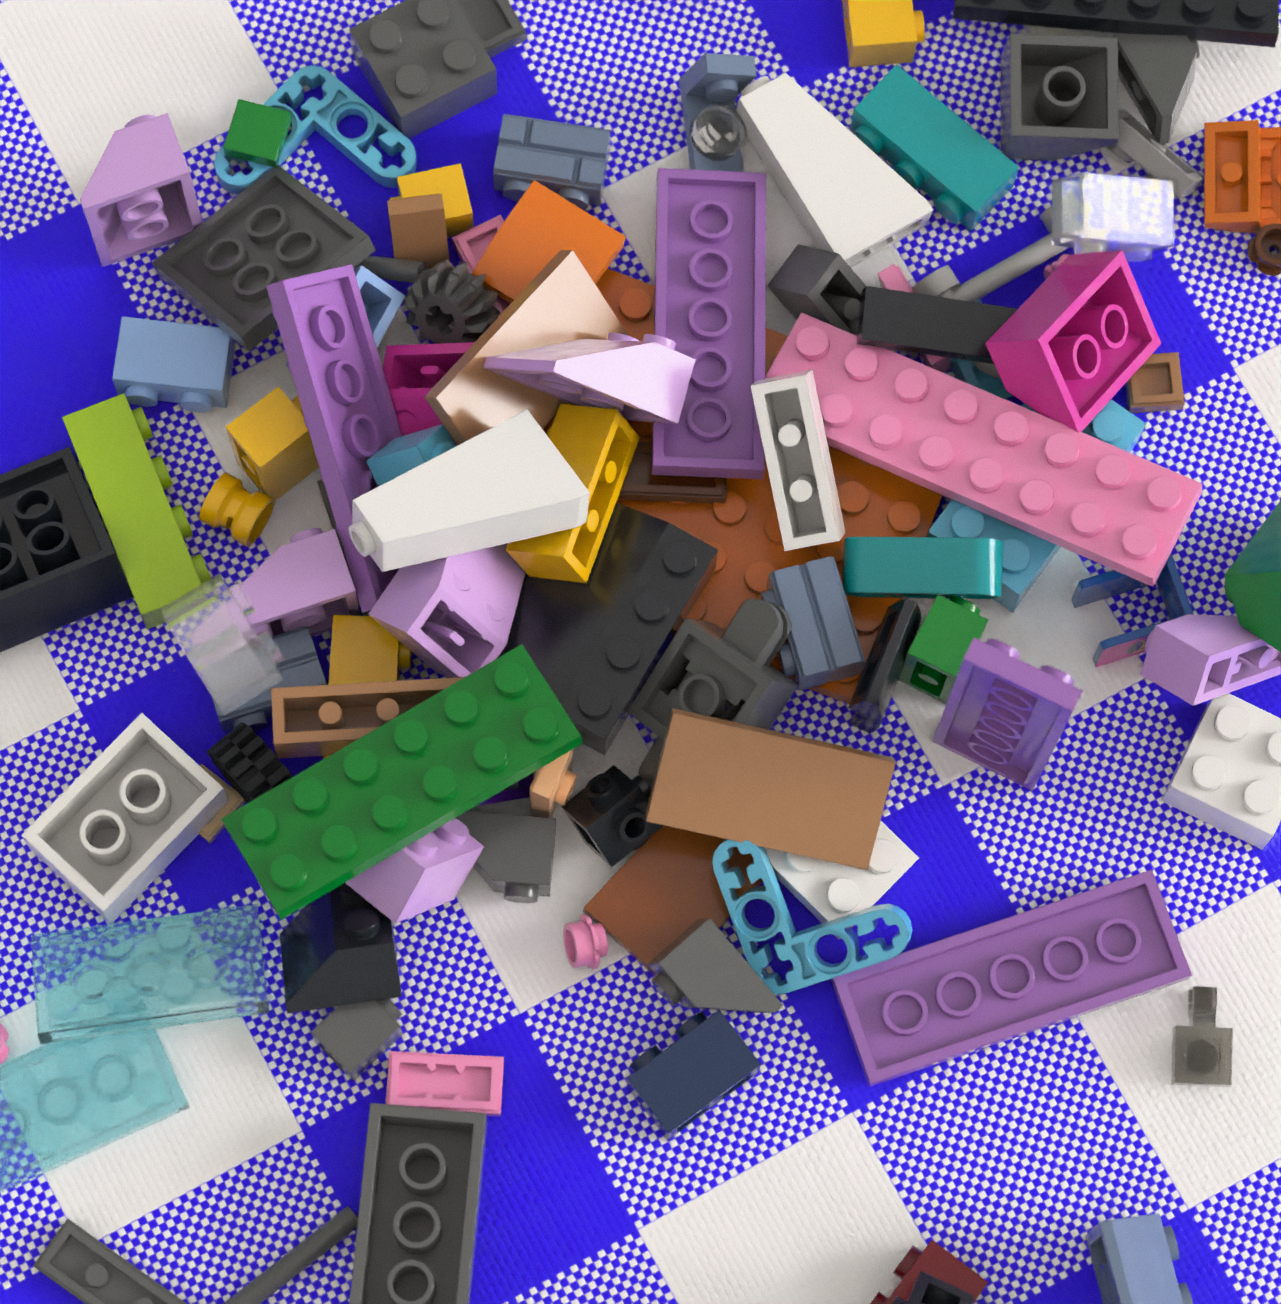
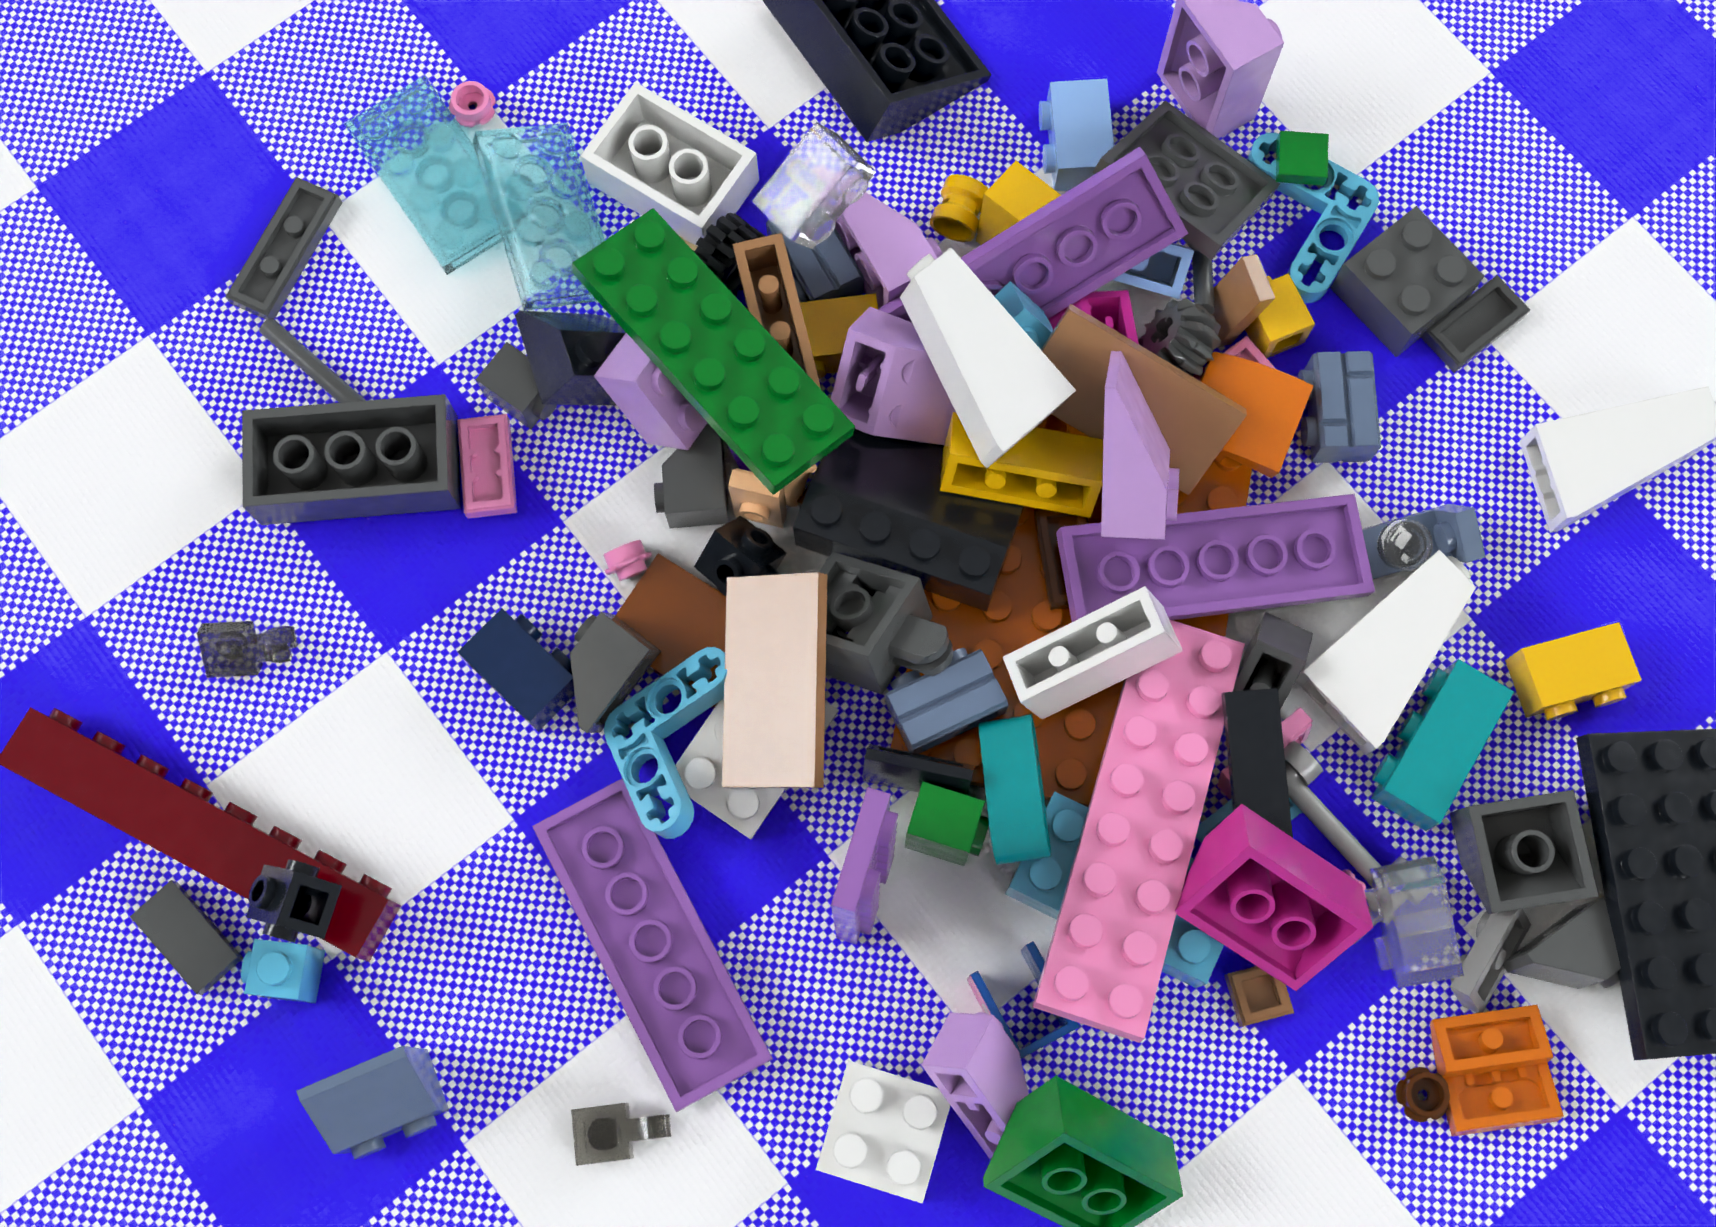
camera: 85 degrees right, 0 degrees up
(134, 504) = (947, 128): lime brick -> none

